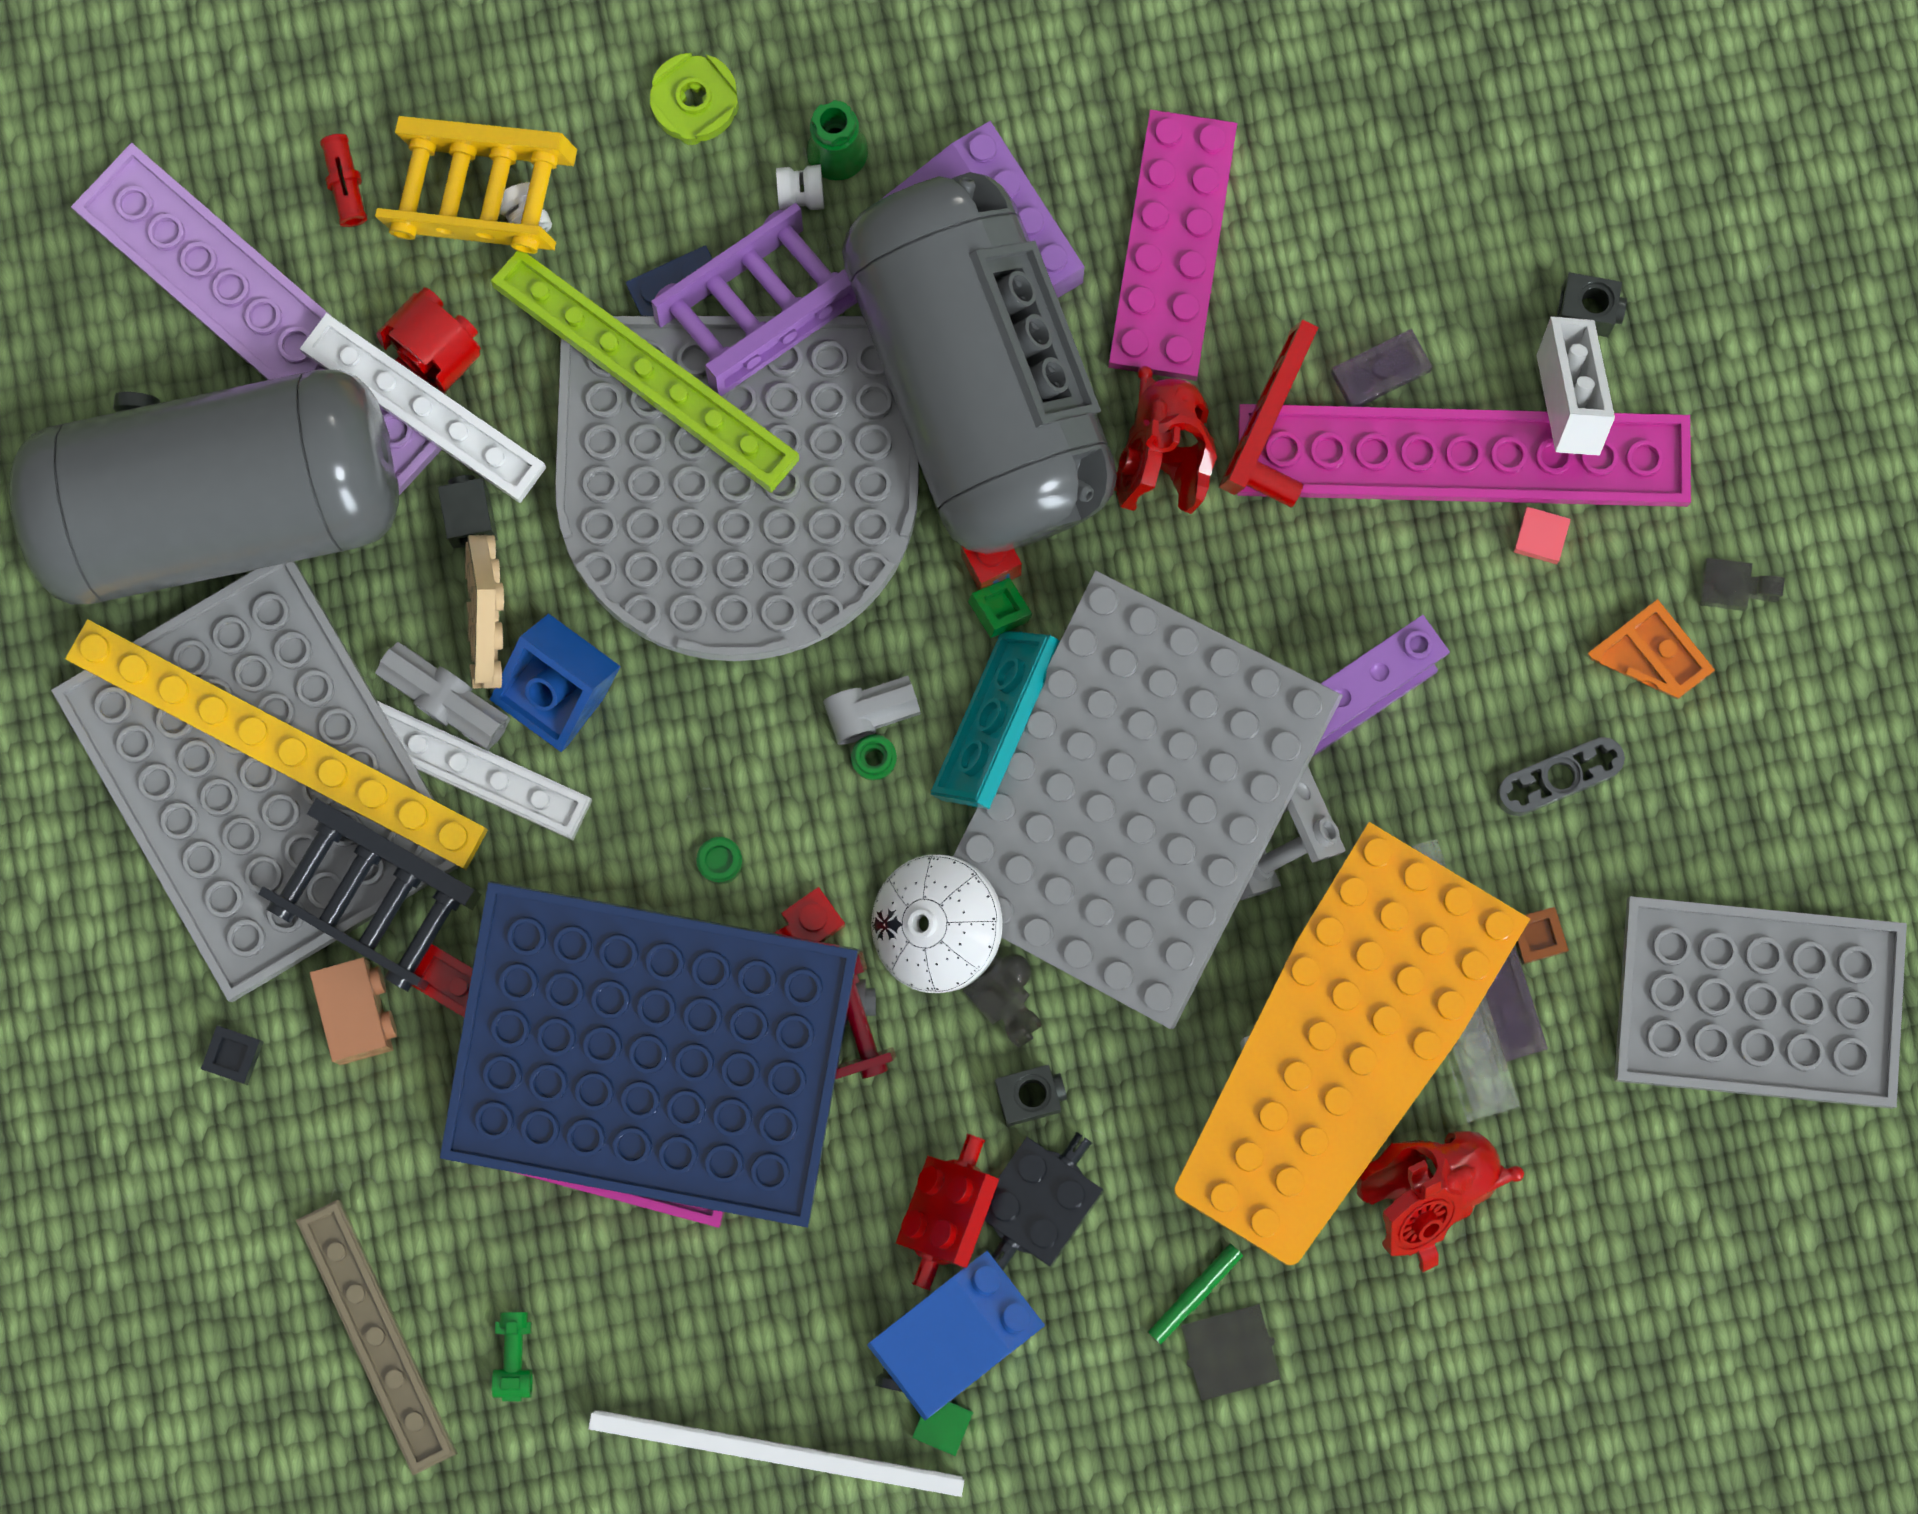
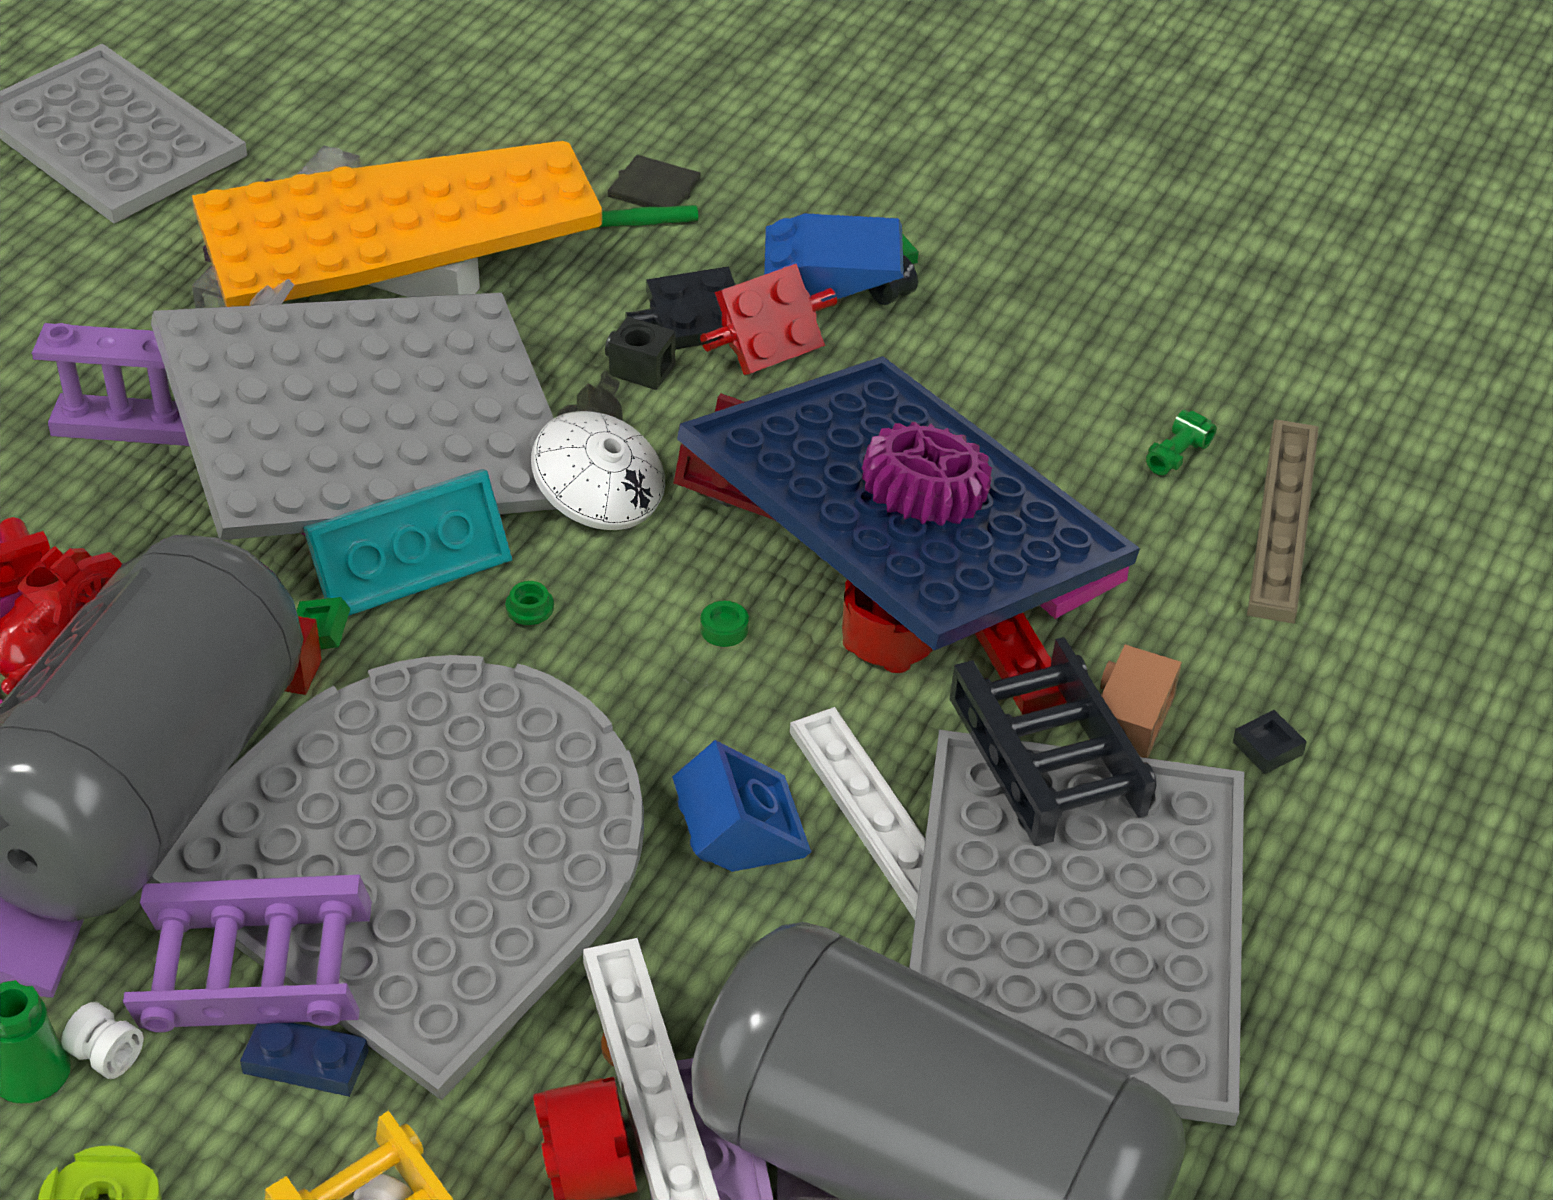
camera: 145 degrees left, 35 degrees down
(277, 744) = (1045, 911): yellow plate -> none
(442, 696) = (852, 869): light grey piece -> none
(466, 509) = (690, 988): pearl dark grey brick -> none
(487, 600) = (754, 867): tan plate -> none
(645, 370) = (414, 972): lime plate -> none
(647, 1069) = (926, 473): none -> magenta gear
(777, 1453) = (1029, 293): white tile -> none
(811, 918) = (697, 543): red plate -> none
(861, 712) = (508, 634): light grey piece -> none
(1429, 1204) = (429, 135): red helmet -> none
(1541, 937) = (186, 235): dark orange plate -> none
(1595, 774) = (37, 292): dark grey beam -> none

